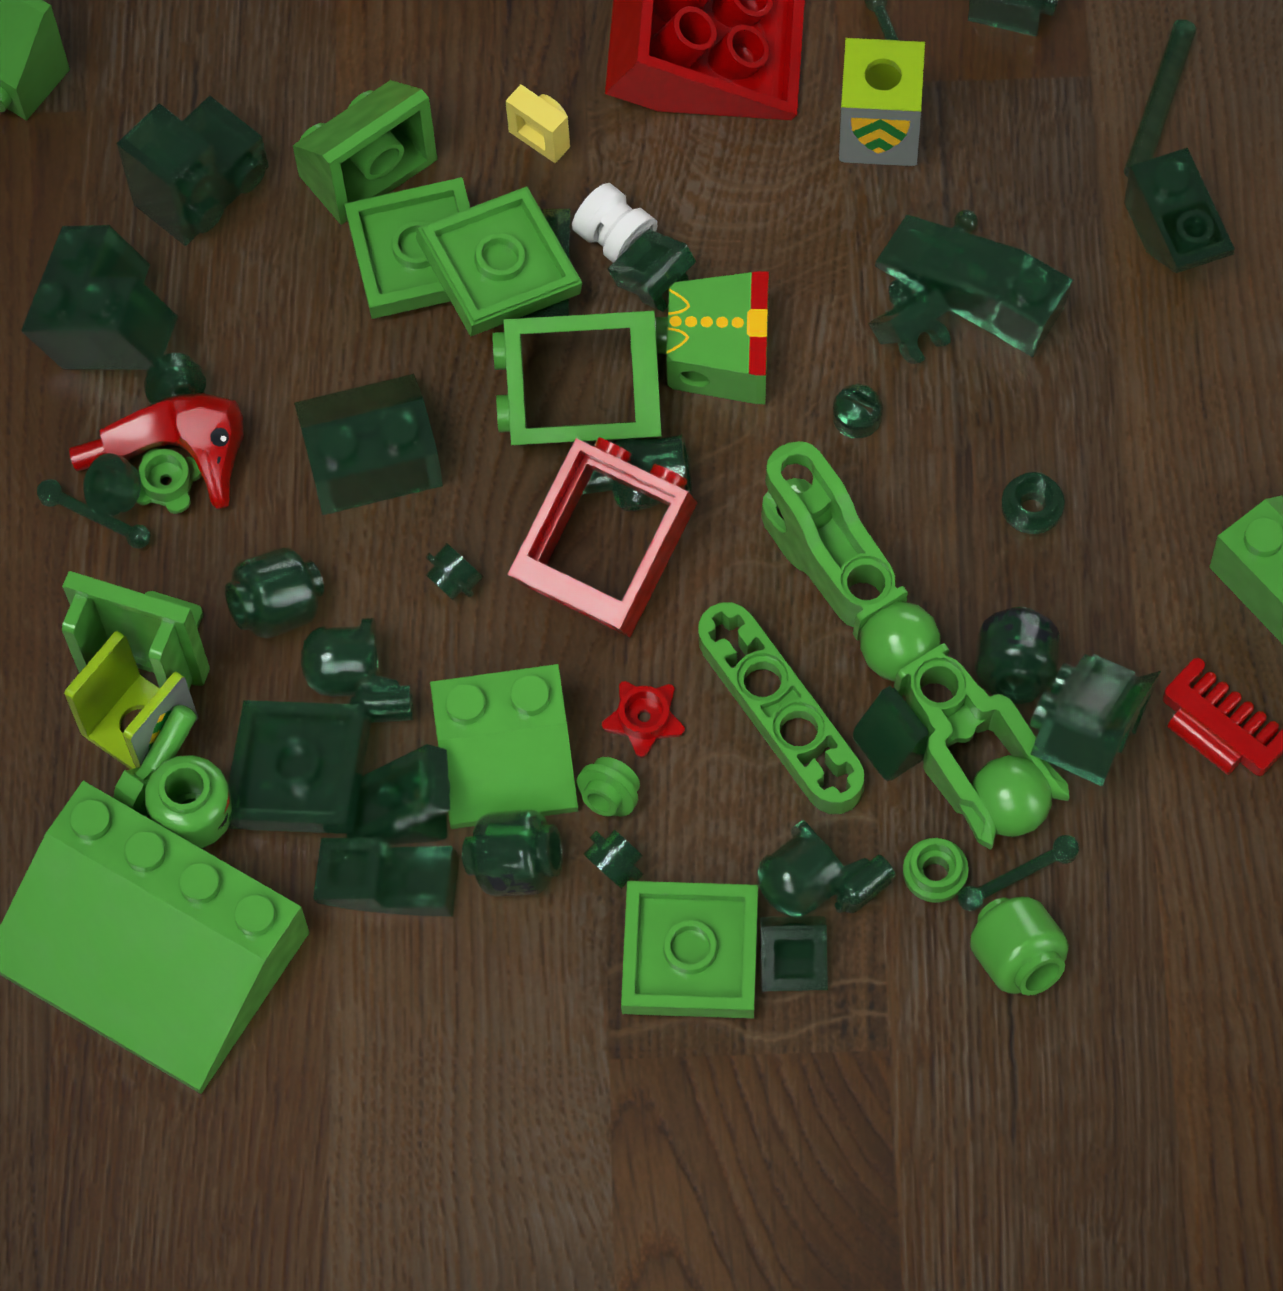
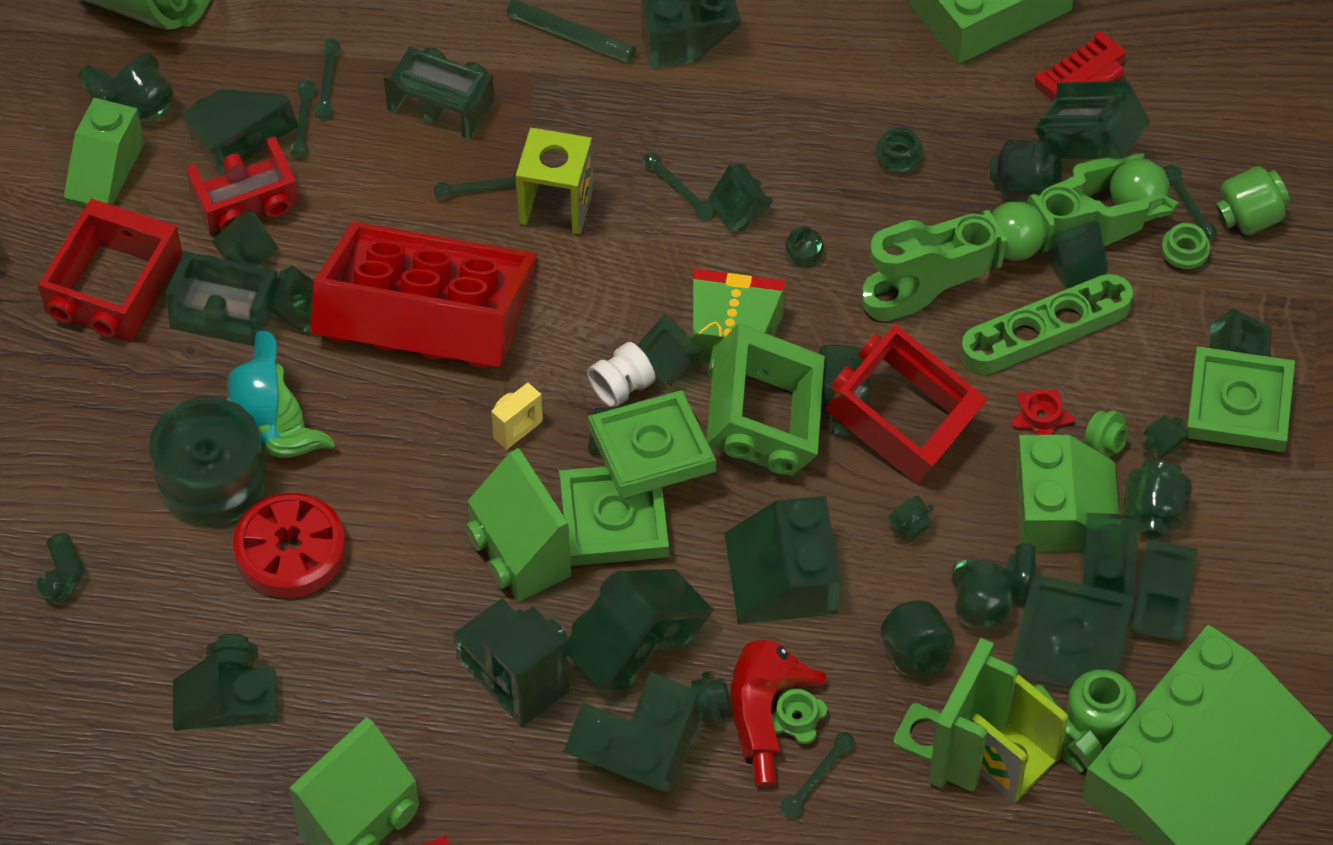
camera: 85 degrees left, 10 degrees down
(111, 485) = (793, 737): clear green plate -> none
(253, 280) = (632, 621): none -> clear green brick
(808, 874) = (1190, 312): clear green piece -> none
(979, 279) = (727, 134): clear green slope -> none

